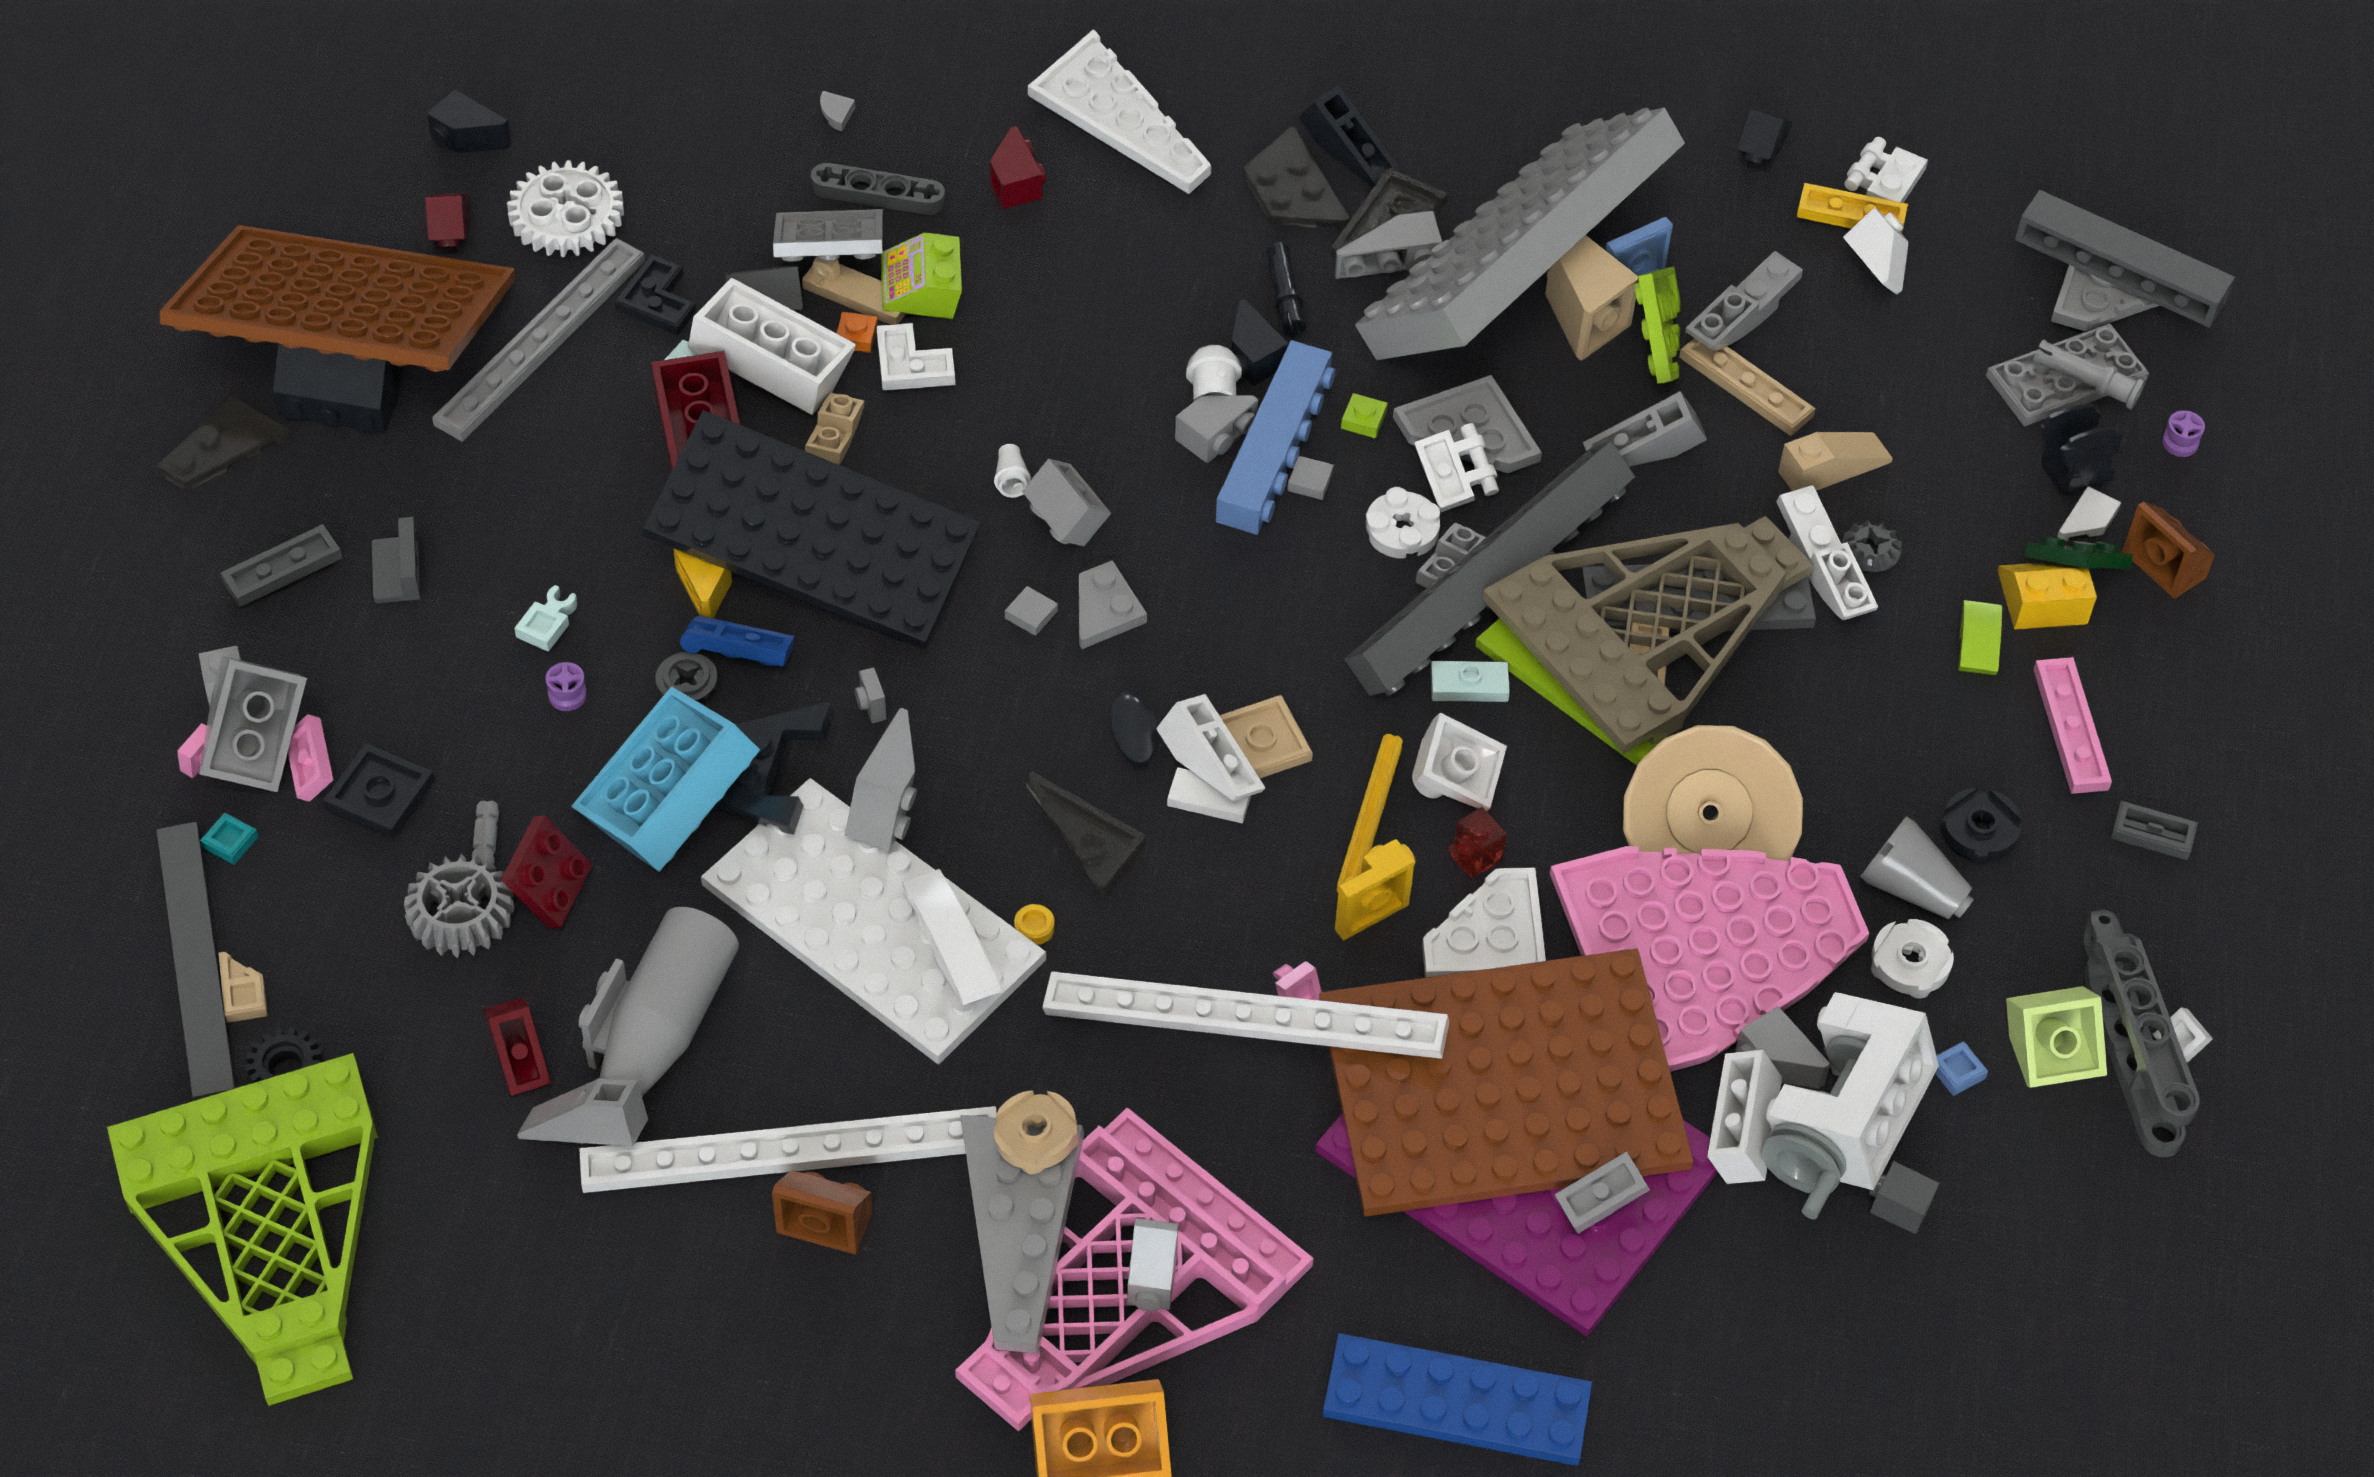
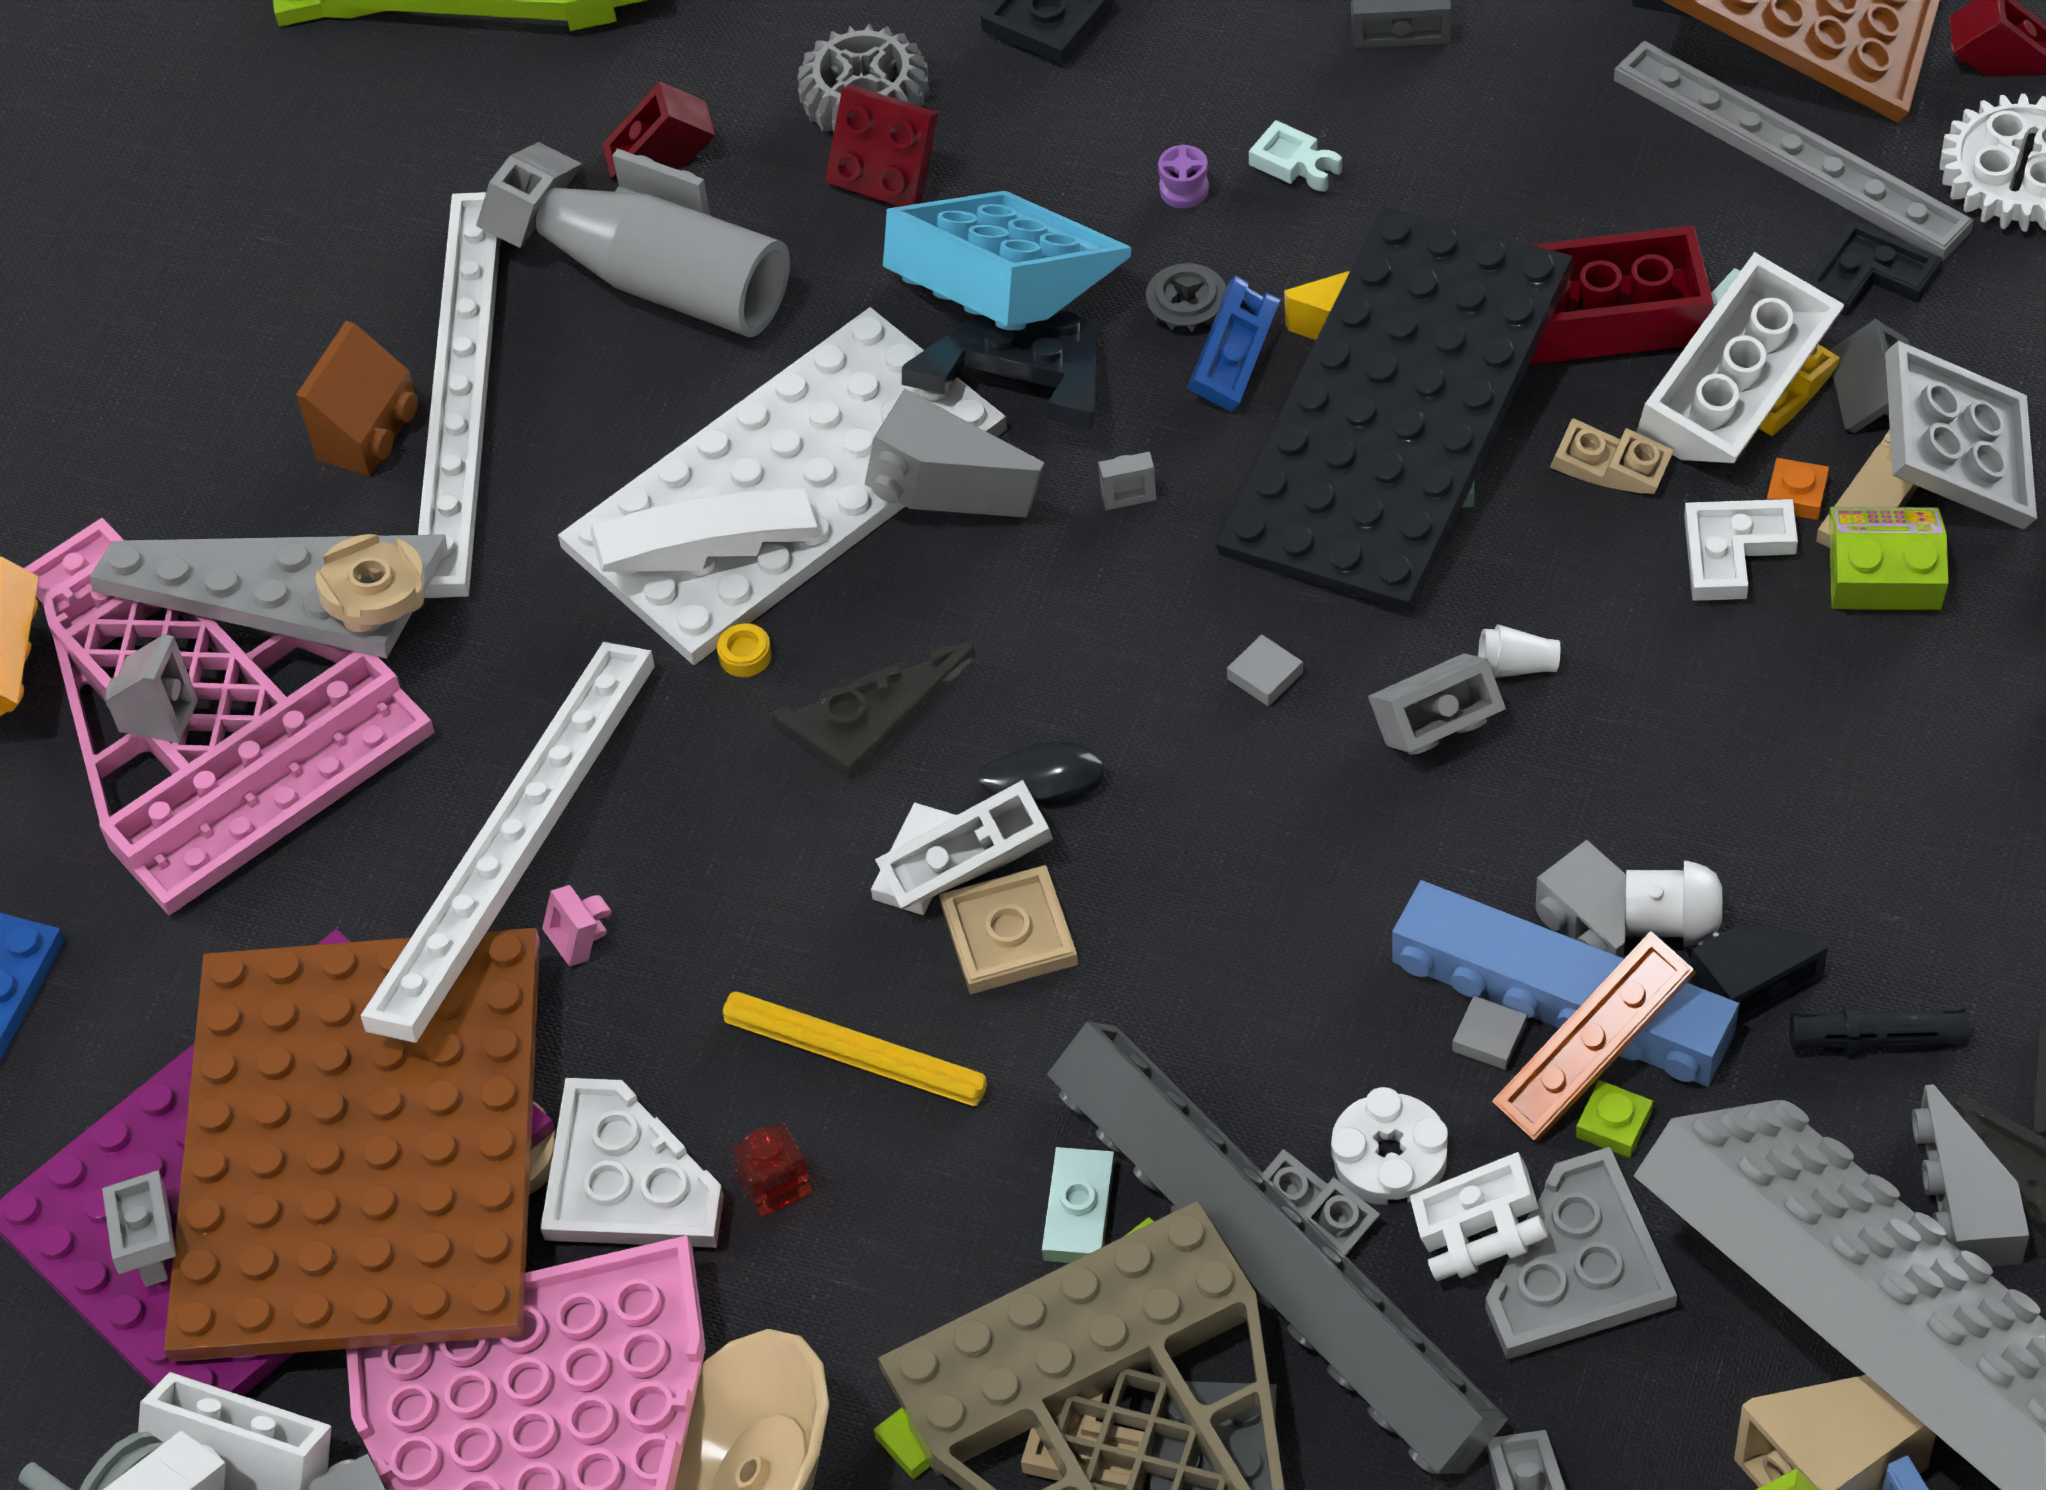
camera: 105 degrees right, 0 degrees up
(485, 831) = (972, 109): light grey axle -> none
(1106, 605) = (1269, 757): light grey wing -> none
(1325, 408) = (1594, 1036): none -> tile
(1377, 891) = (699, 1014): yellow plate -> none
(1458, 763) = (910, 1160): white slope -> none

